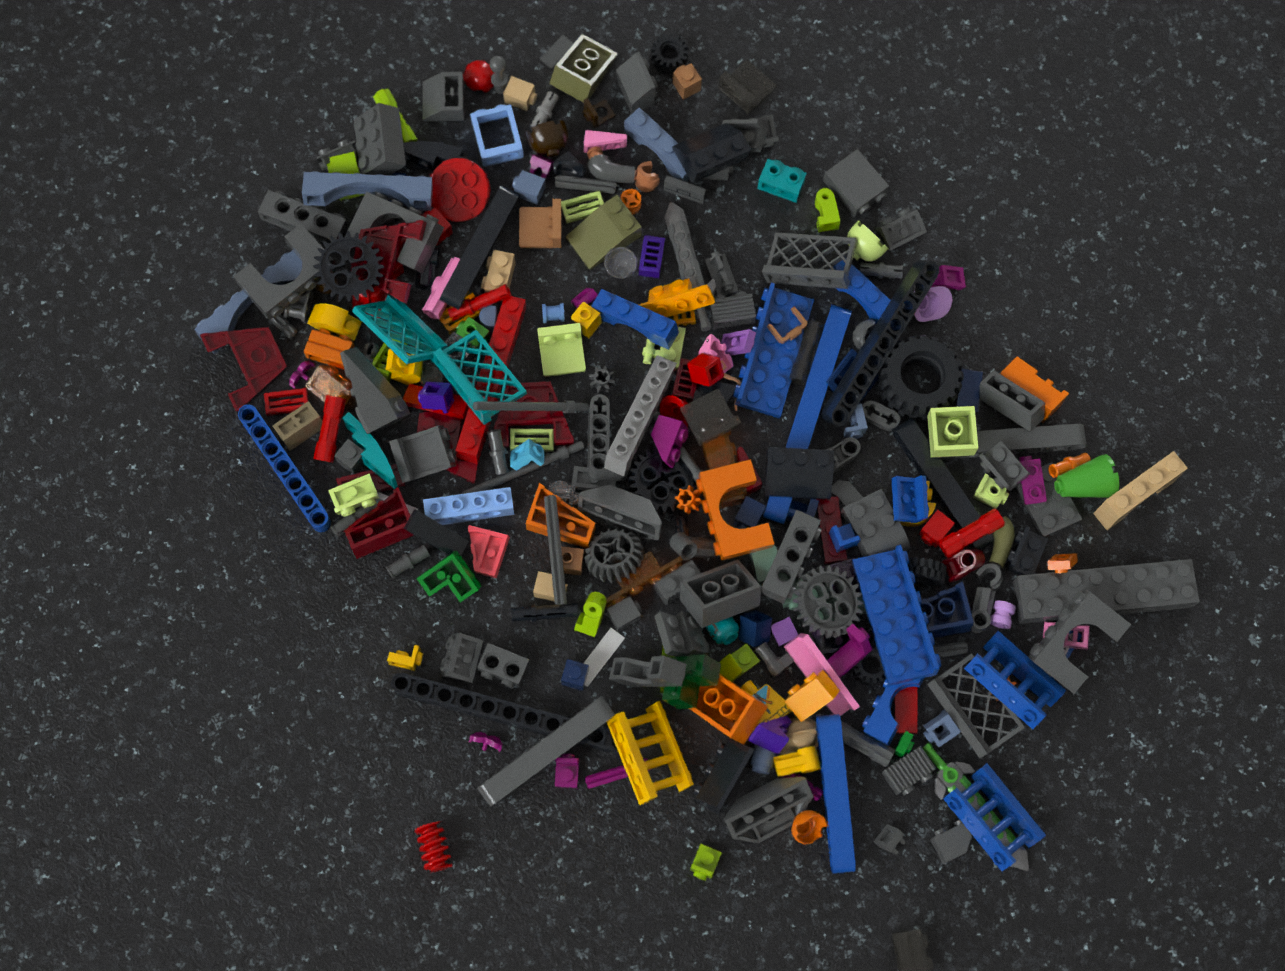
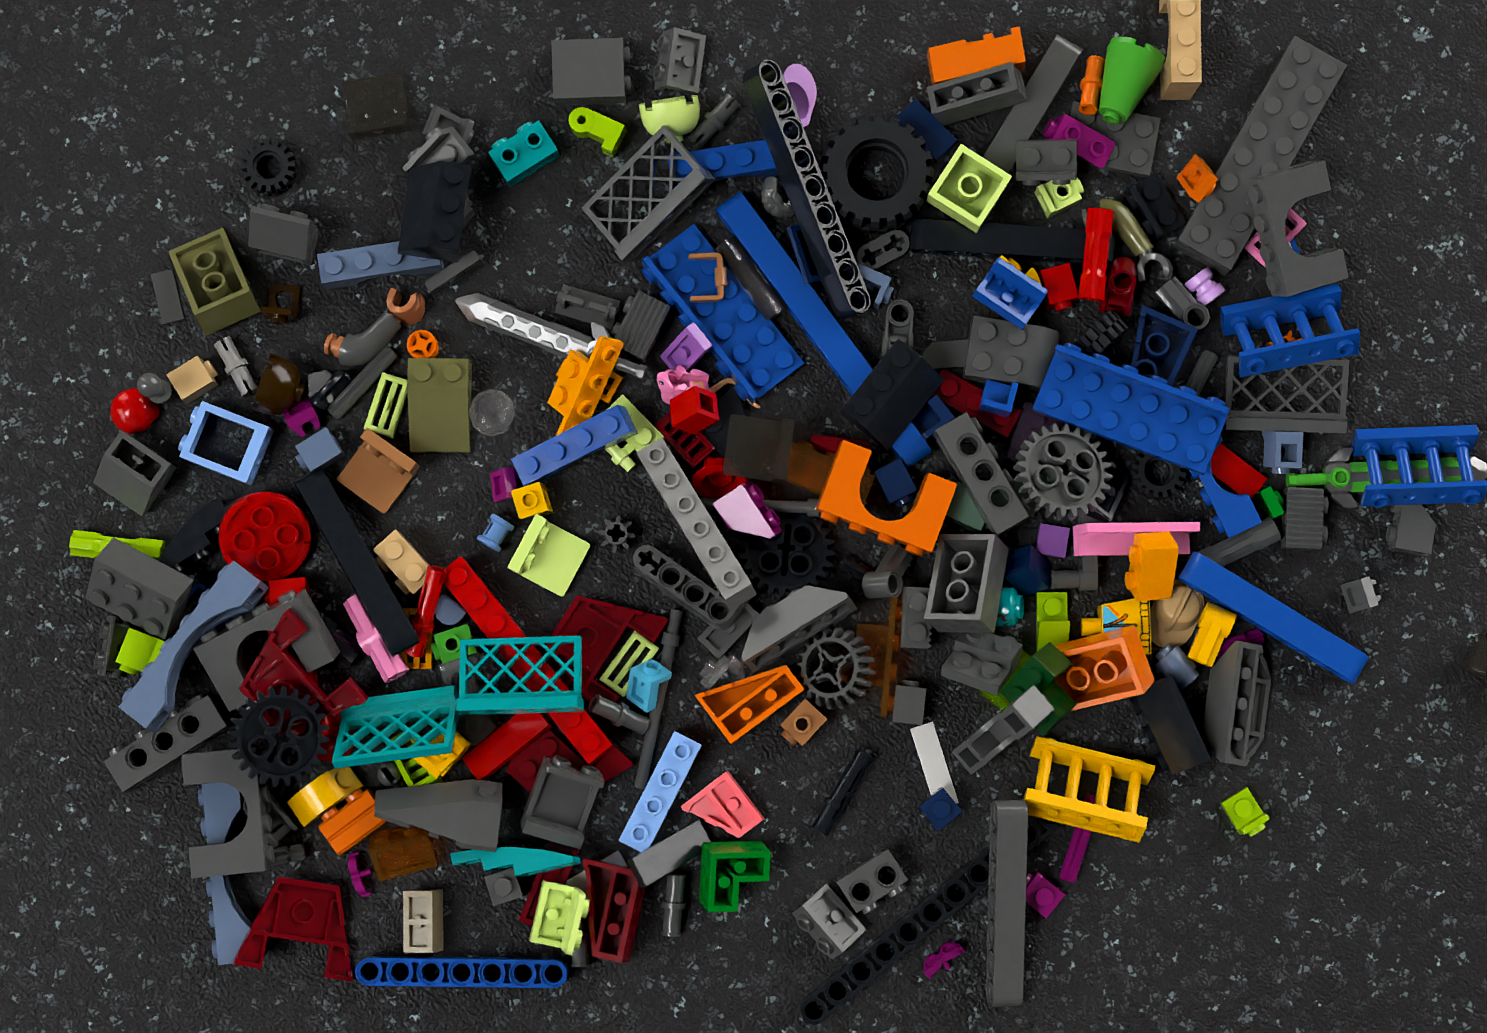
camera: 50 degrees left, 10 degrees up
(279, 394) = (393, 890): red tile -> none
(326, 444) = (459, 894): red axle -> none
(402, 659) = (784, 990): yellow bracket -> none
(436, 396) = (506, 740): dark purple brick -> none
(544, 586) = (819, 765): tan brick -> none
(555, 550) = (787, 732): dark grey axle -> none
(566, 406) = (621, 598): dark grey bar -> none
(594, 609) = (888, 745): lime leg -> none
(604, 140) = (324, 324): bright pink slope -> none
(648, 271) = (523, 387): dark purple slope -> none
(687, 80) = (319, 172): medium nougat brick -> none
(690, 504) = (837, 547): orange gear -> none
(771, 734) = (1164, 642): dark purple slope -> none
(808, 826) = (1286, 673): orange hair -> none
(851, 652) = (1133, 489): magenta bracket -> none
(950, 277) = (780, 48): magenta bracket -> none

